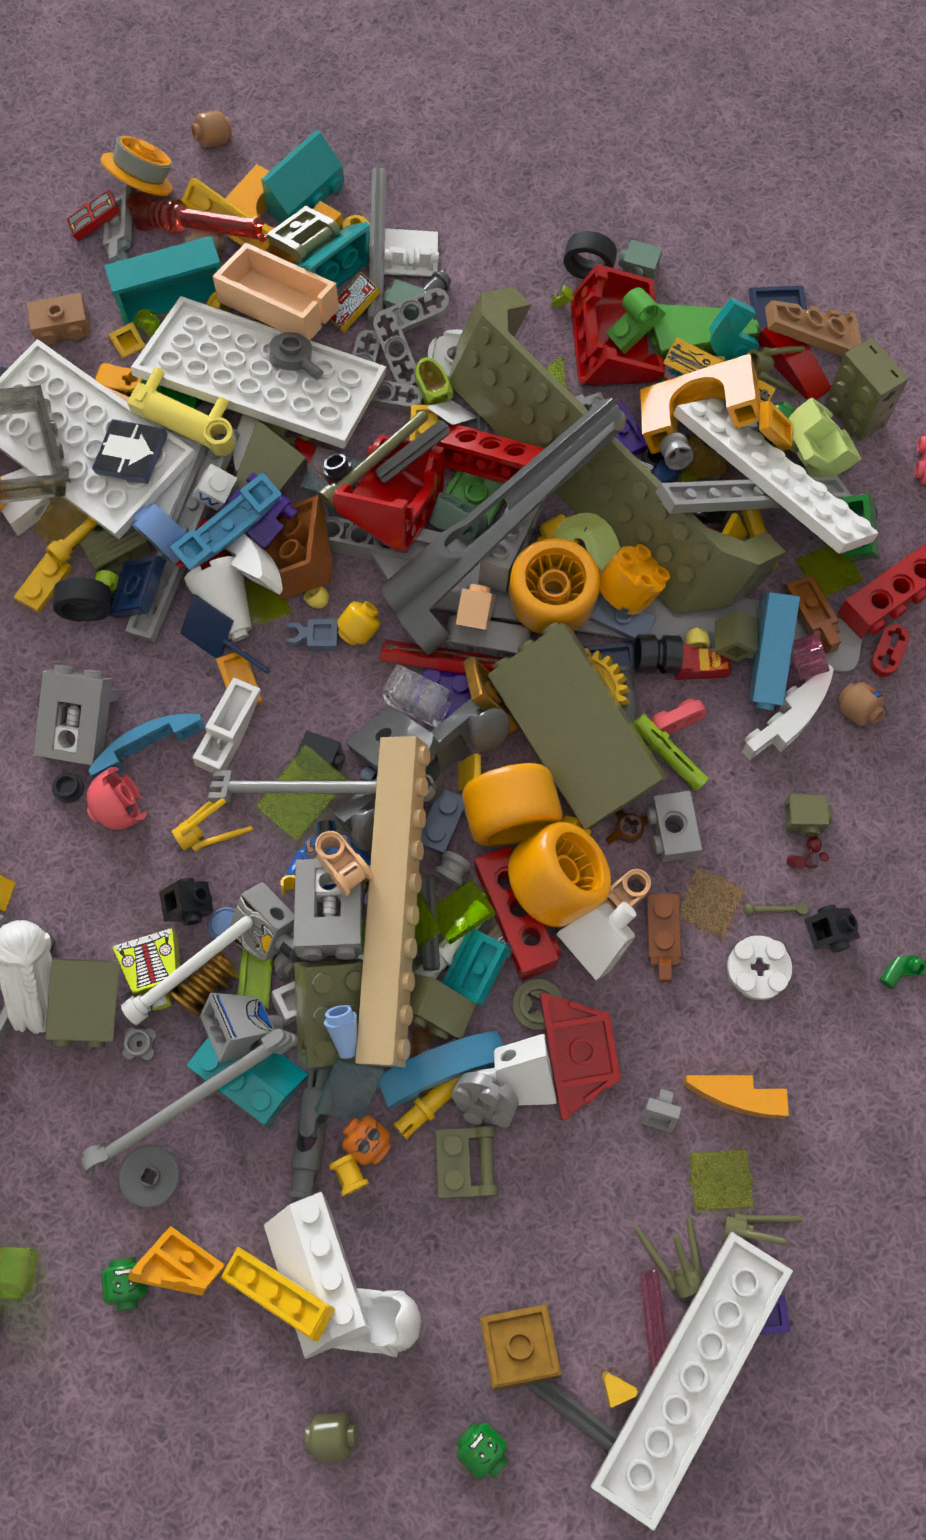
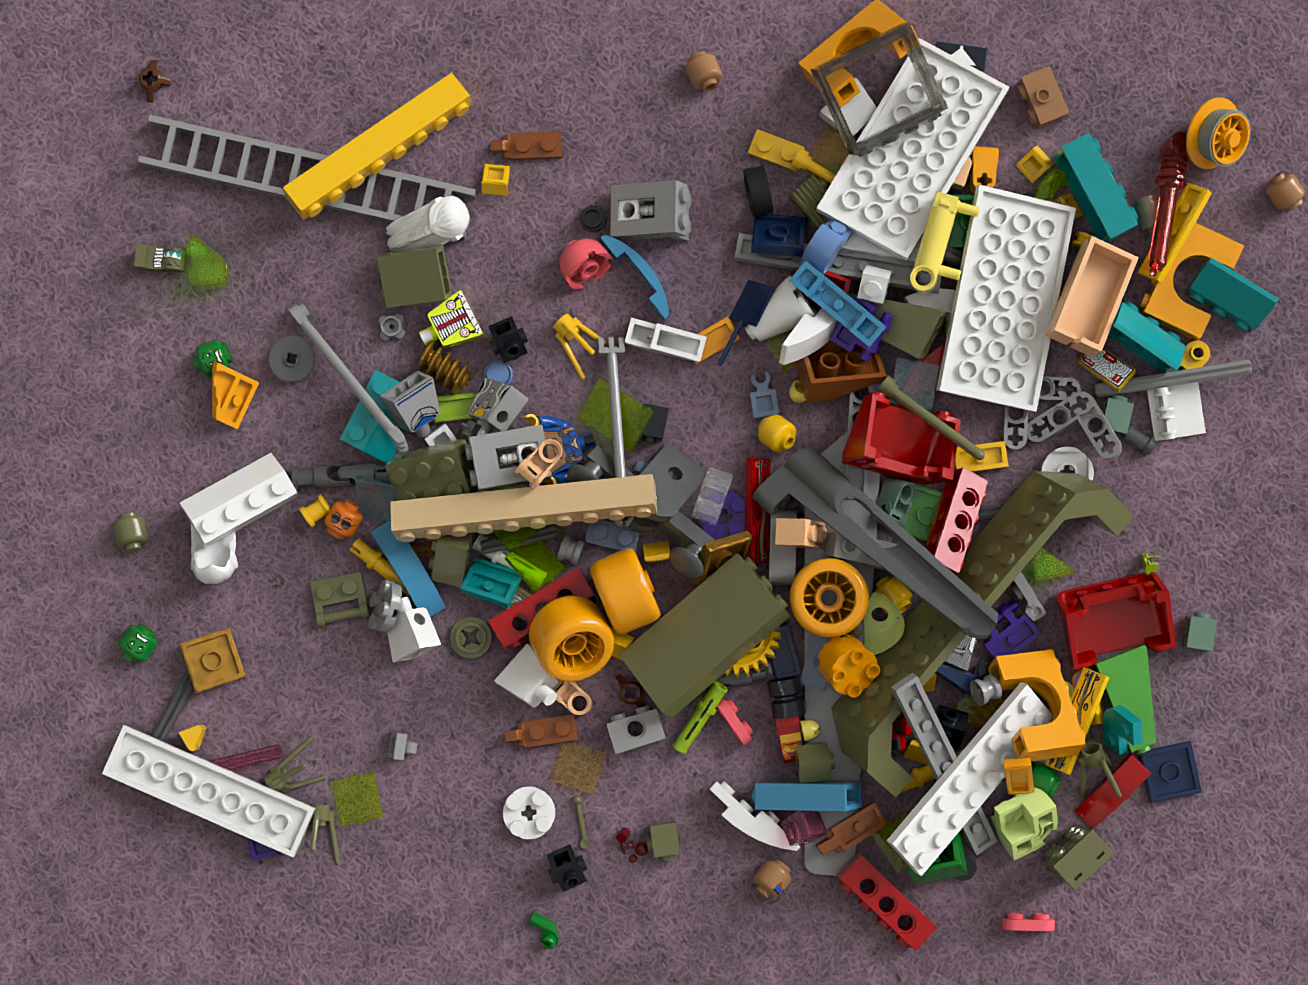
camera: 85 degrees right, 15 degrees up
(93, 215) = (1163, 101): tile -> none
(108, 578) = (782, 205): lime hinge -> none
(118, 232) = (1152, 127): light grey hinge -> none
(129, 451) = (897, 202): tile -> none
(137, 1008) = (415, 321): white piece -> none
(278, 1294) = (219, 474): yellow tile -> none
(293, 352) = (1028, 324): dark grey piece -> none
(300, 227) = (1166, 302): olive plate -> none
(337, 466) = (915, 388): black plate -> none
(342, 1028) = (414, 487): light blue cone -> none
(412, 451) = (942, 452): dark grey axle -> none
(432, 382) = (1030, 456): rock -> none
(452, 412) = (1002, 479): white sticker -> none
(579, 1052) = (437, 675): red wing -> none
(592, 243) = (1192, 583): black tyre -> none
(640, 316) = (1129, 638): bright green plate -> none
(739, 1095) = (422, 804): light orange slope -> none
(821, 329) = (1145, 814): medium nougat wing -> none
(896, 652) = (831, 894): red beam -> none

